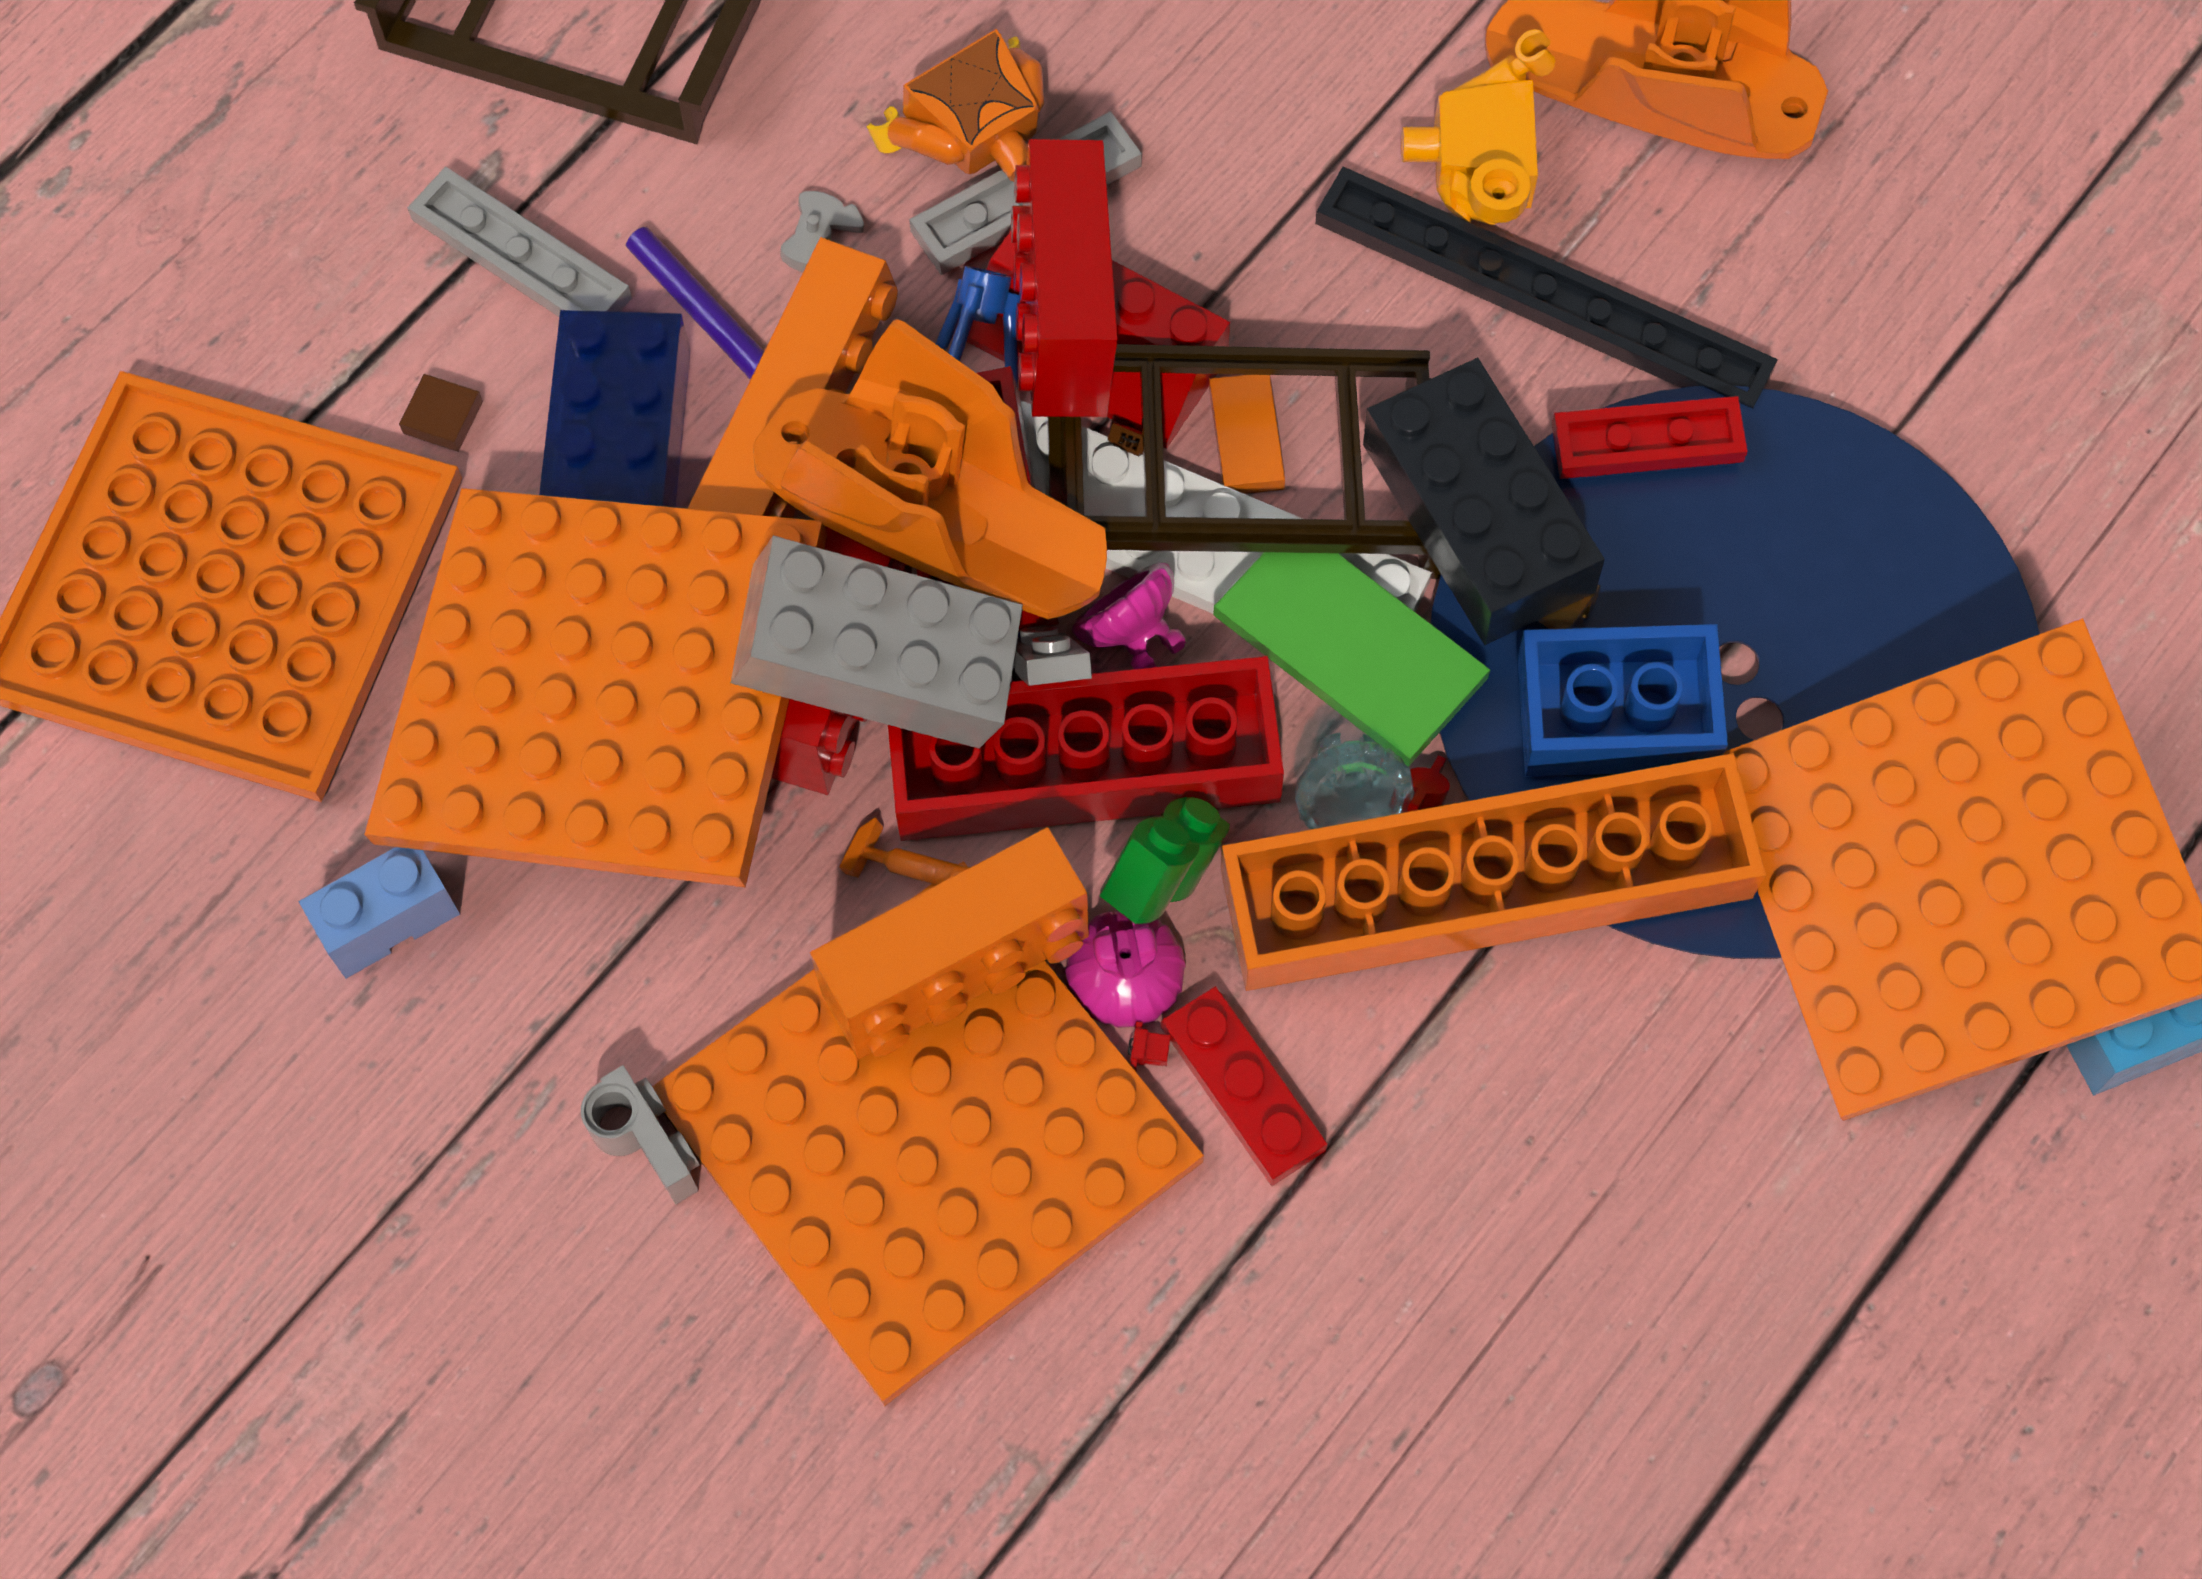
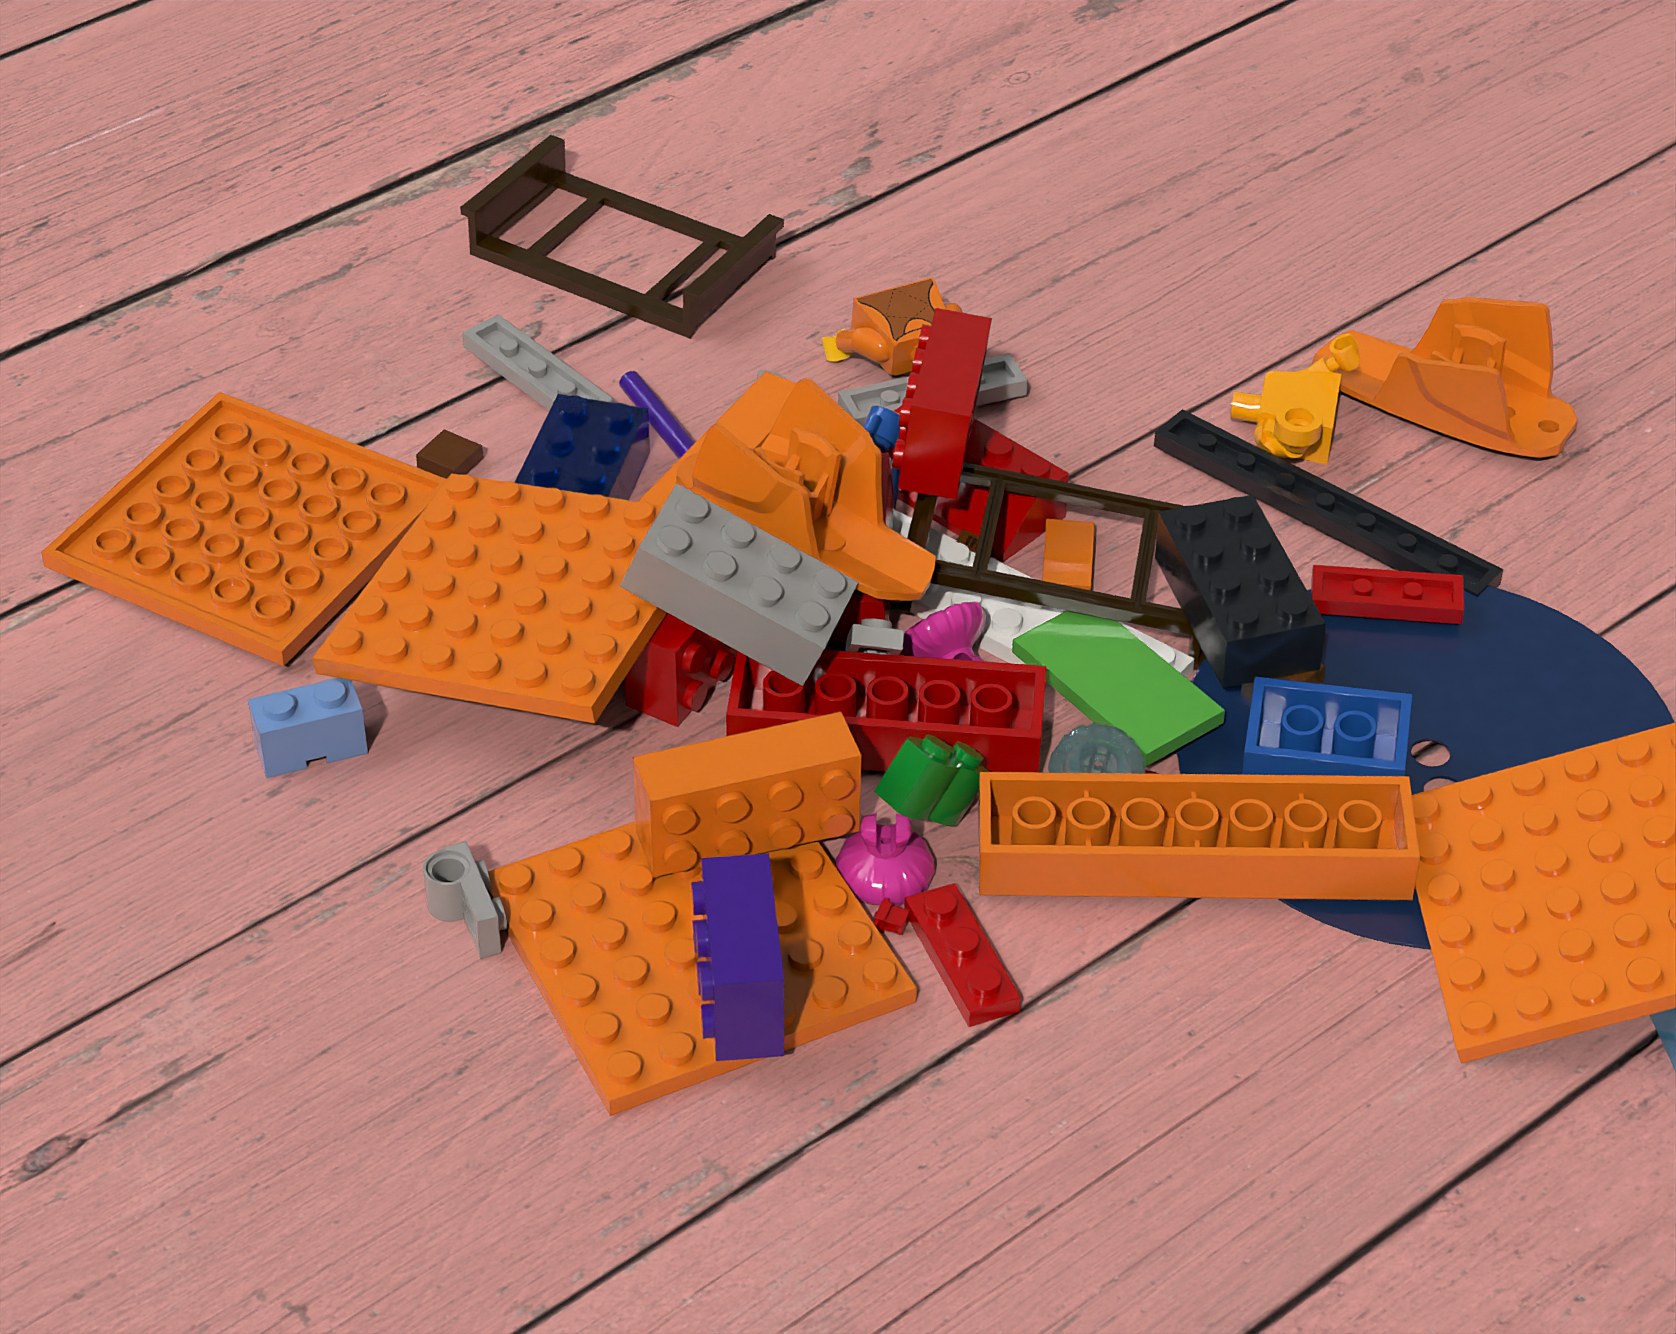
camera: 10 degrees right, 25 degrees down
(998, 1199) = (742, 957): none -> dark purple brick

